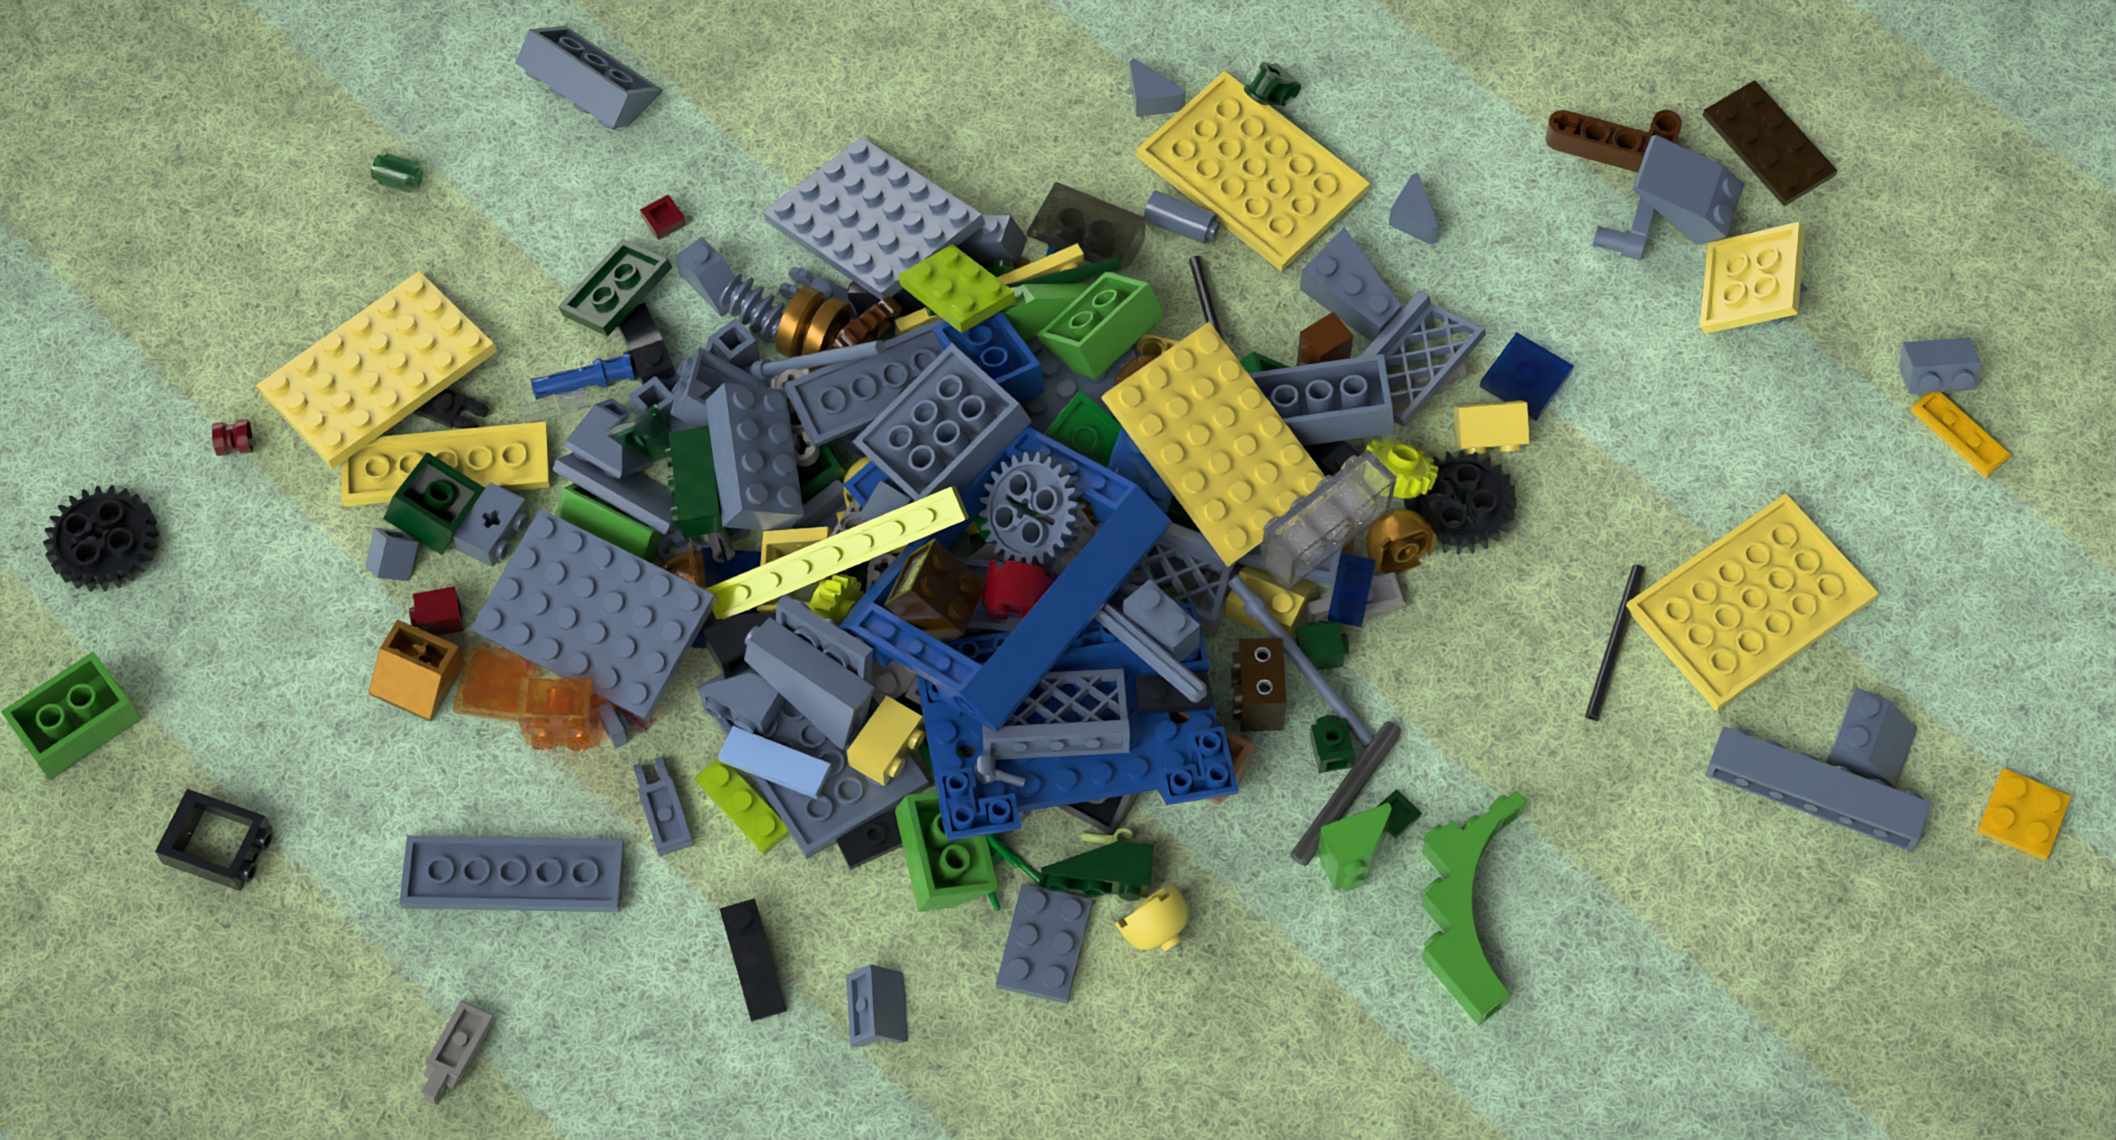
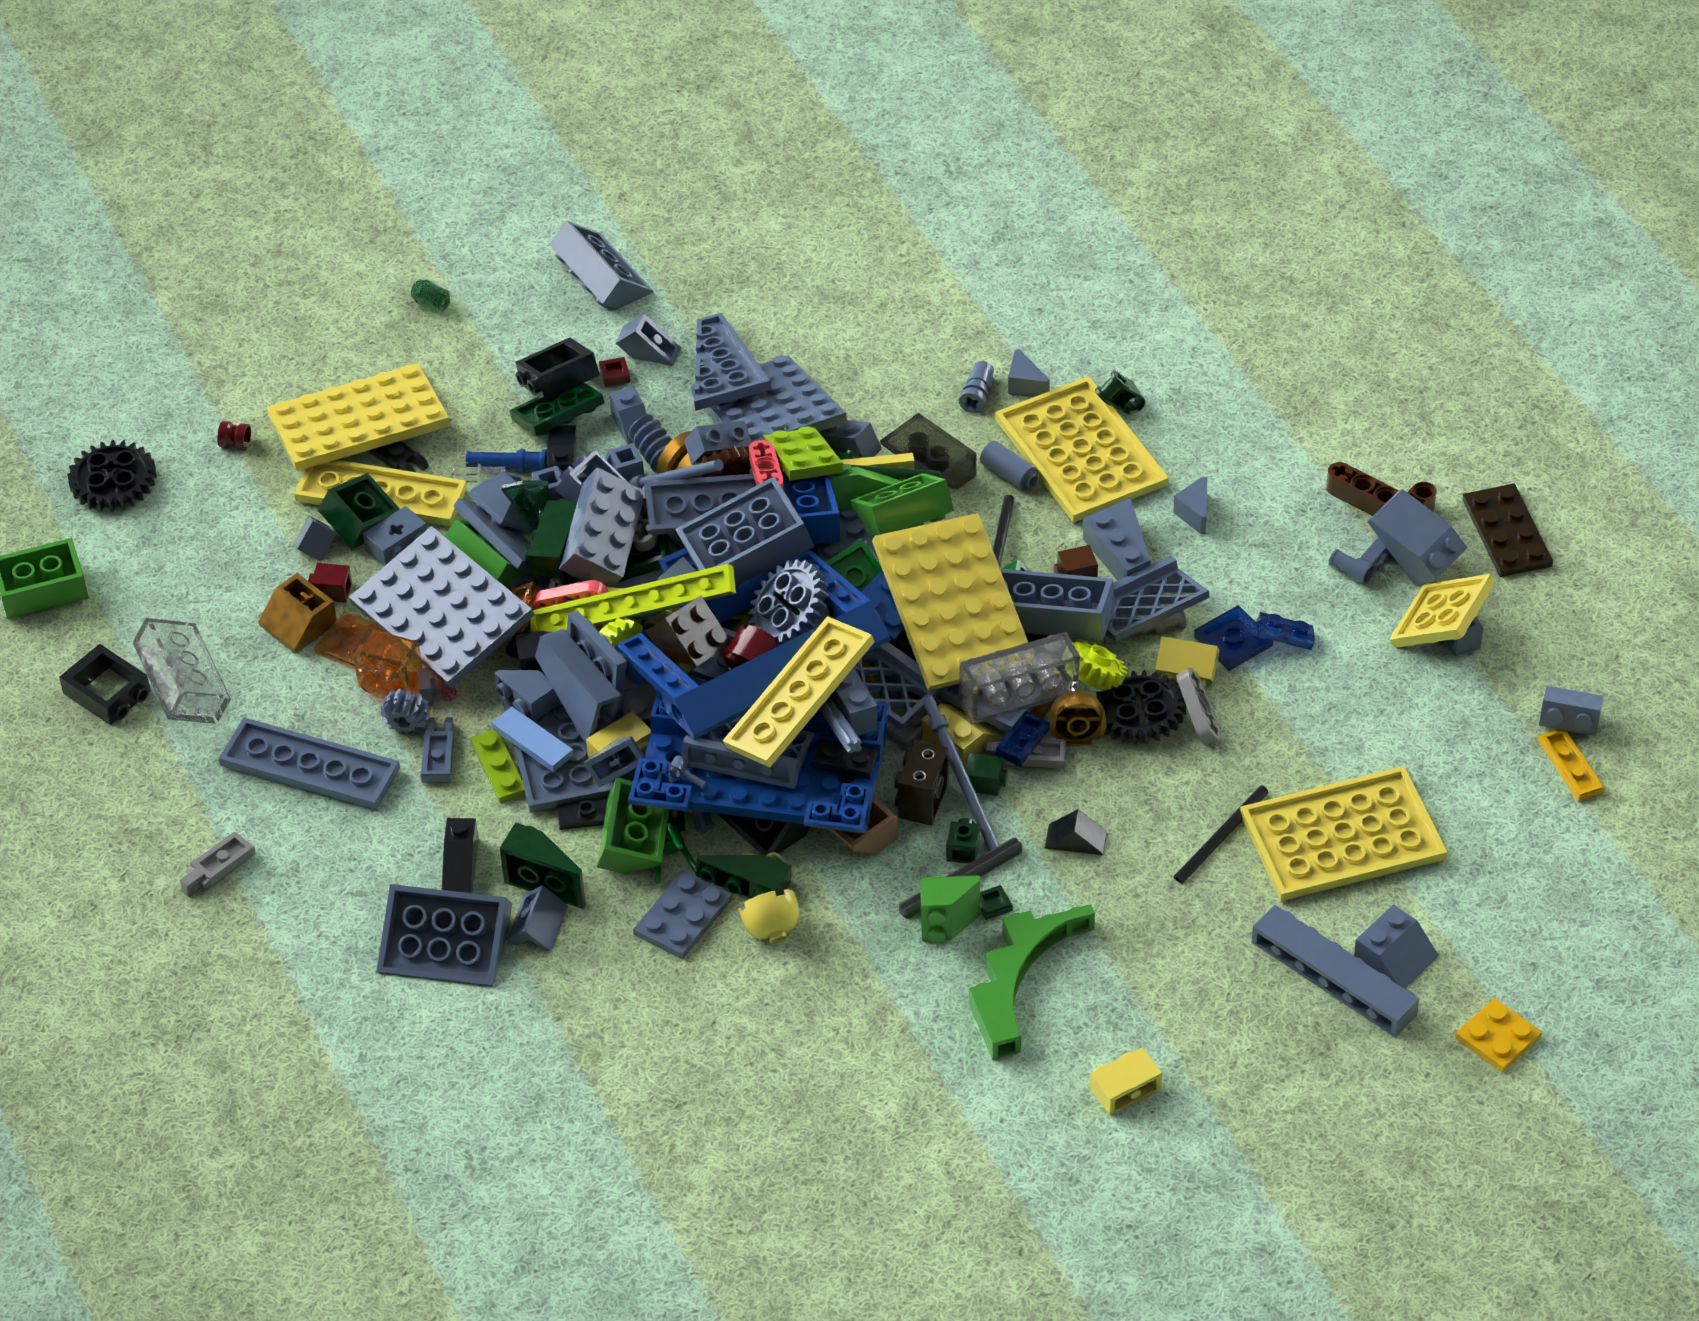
camera: 20 degrees right, 15 degrees down
(306, 798) = (181, 671): none -> clear brick
(604, 770) = (405, 711): none -> sand blue gear
(626, 231) = (557, 369): none -> black window
(687, 165) = (647, 342): none -> sand blue slope
(746, 557) = (577, 591): none -> coral beam
(774, 1066) = (443, 934): none -> sand blue slope
(801, 181) = (724, 365): none -> sand blue wing
(848, 300) = (715, 437): none -> sand blue brick
(856, 938) = (535, 860): none -> dark green slope
(897, 773) = (614, 760): none -> sand blue slope
(924, 312) = (769, 461): none -> coral beam
(1101, 120) = (978, 387): none -> sand blue axle
(1102, 636) = (798, 691): none -> light yellow plate
(1454, 695) = (1076, 834): none -> black slope
(1529, 483) = (1198, 706): none -> light grey beam
(1583, 351) = (1285, 630): none -> clear blue plate
(1645, 1010) = (1125, 1080): none -> light yellow brick

